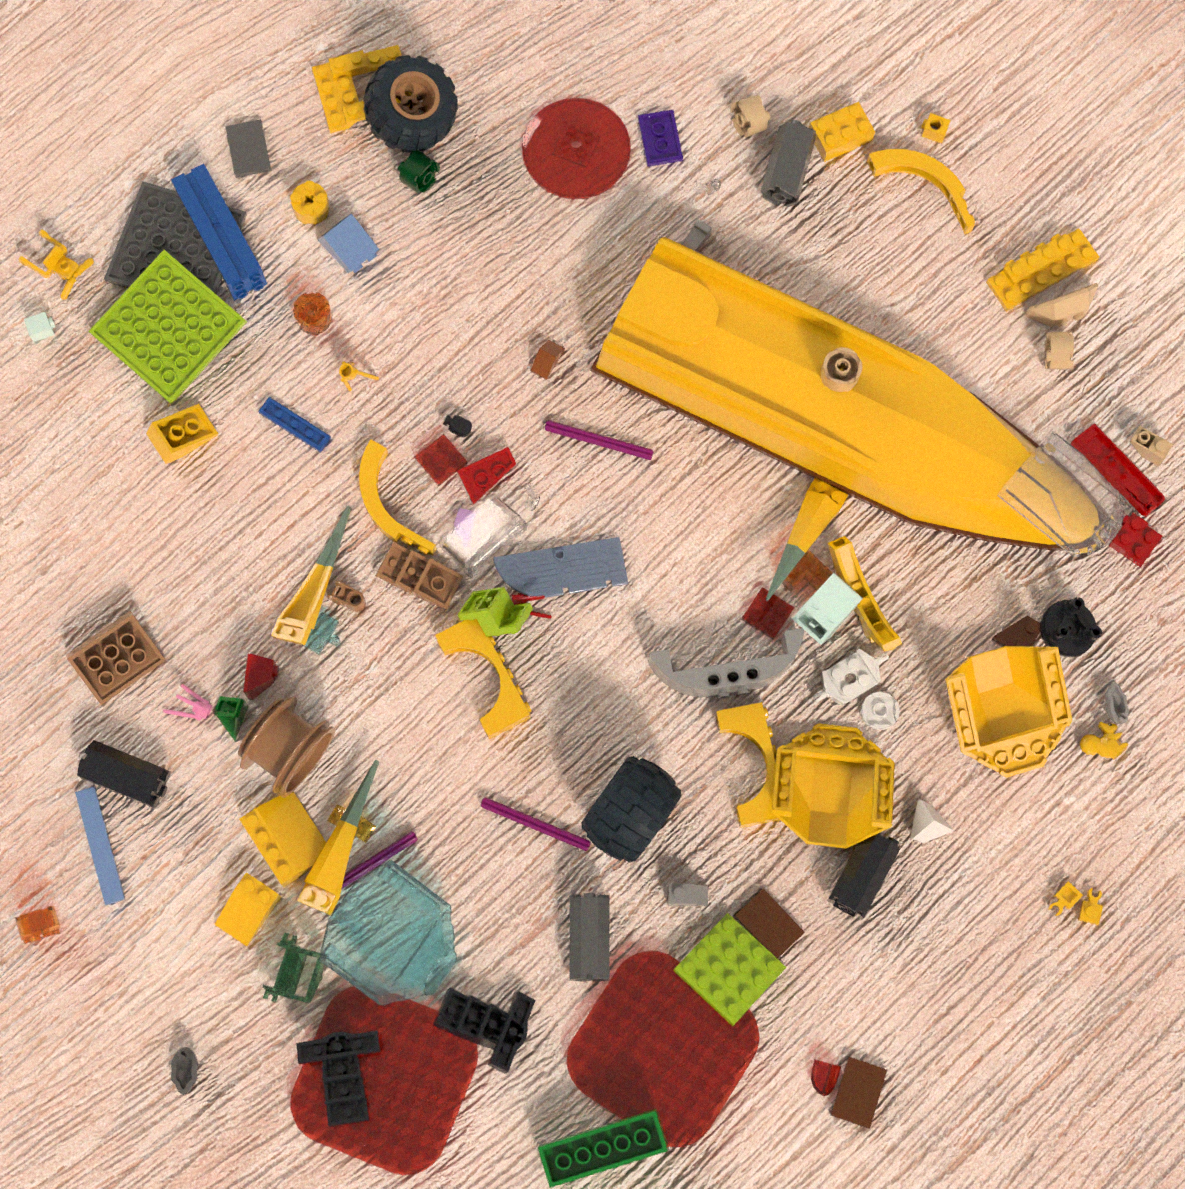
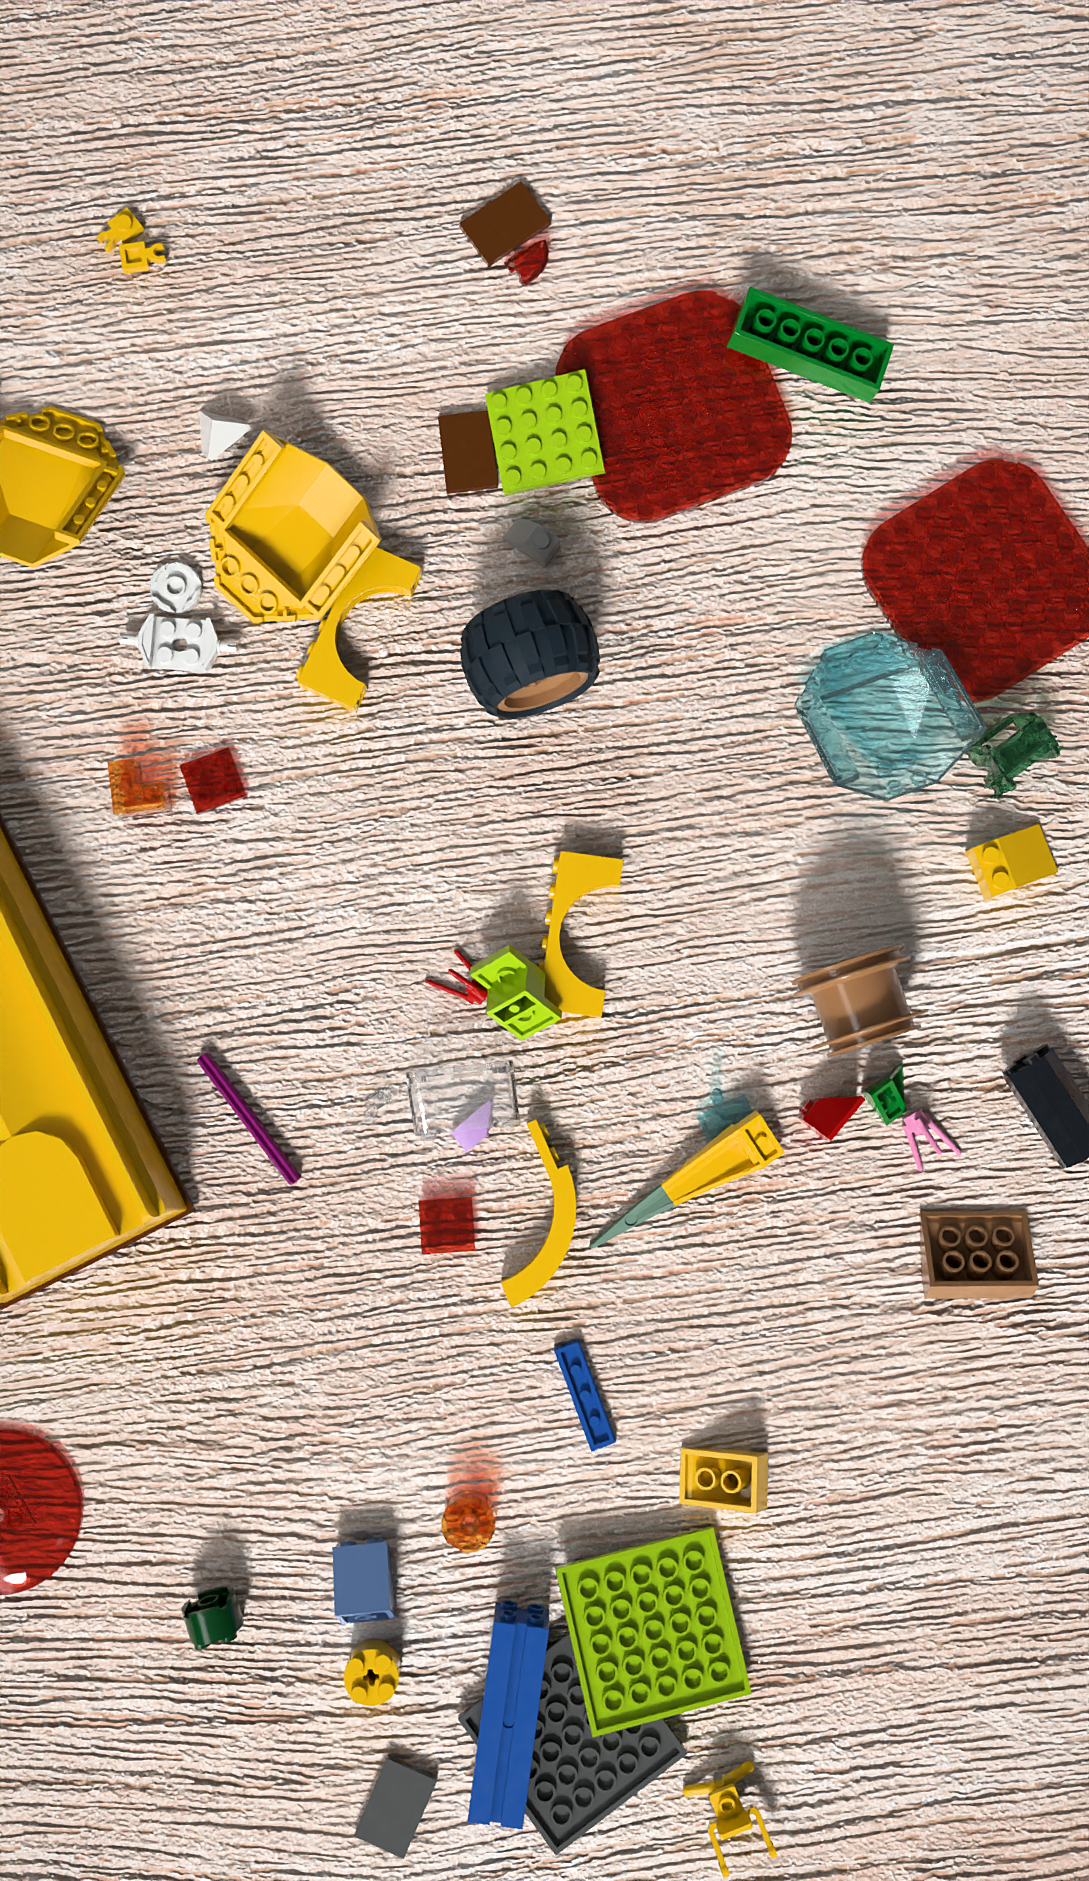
camera: 145 degrees left, 10 degrees up
(40, 326) = (804, 1744): light aqua brick -> none
(285, 837) = (921, 907): yellow slope -> none
(326, 876) = (905, 832): yellow plate -> none
(337, 86) = (232, 1804): yellow piece -> none
(342, 1073) = (1030, 611): black slope -> none
(344, 595) = (668, 1138): medium nougat piece -> none
(349, 372) = (479, 1407): yellow plant -> none
(364, 827) = (839, 874): clear yellow bracket -> none
(379, 858) = (854, 817): magenta axle -> none
(393, 120) = (196, 1713): black wheel -> none
(419, 576) = (569, 1103): medium nougat slope -> none
(458, 425) = (396, 1253): black arm -> none
(485, 473) = (408, 1172): red wing -> none
(487, 1024) = (841, 553): black slope -> none
(535, 824) = (639, 734): magenta axle -> none
(547, 359) = (235, 1261): dark orange slope -> none
(573, 567) = (388, 989): sand blue door -> none
(589, 938) = (670, 564): dark grey brick -> none
(696, 681) = (269, 713): light grey slope -> none
(816, 513) = (69, 851): yellow plate -> none
(827, 609) = (145, 729): light aqua slope -> none
(864, 875) = (333, 420): black brick -> none
(871, 617) = (99, 713): yellow arch -> none

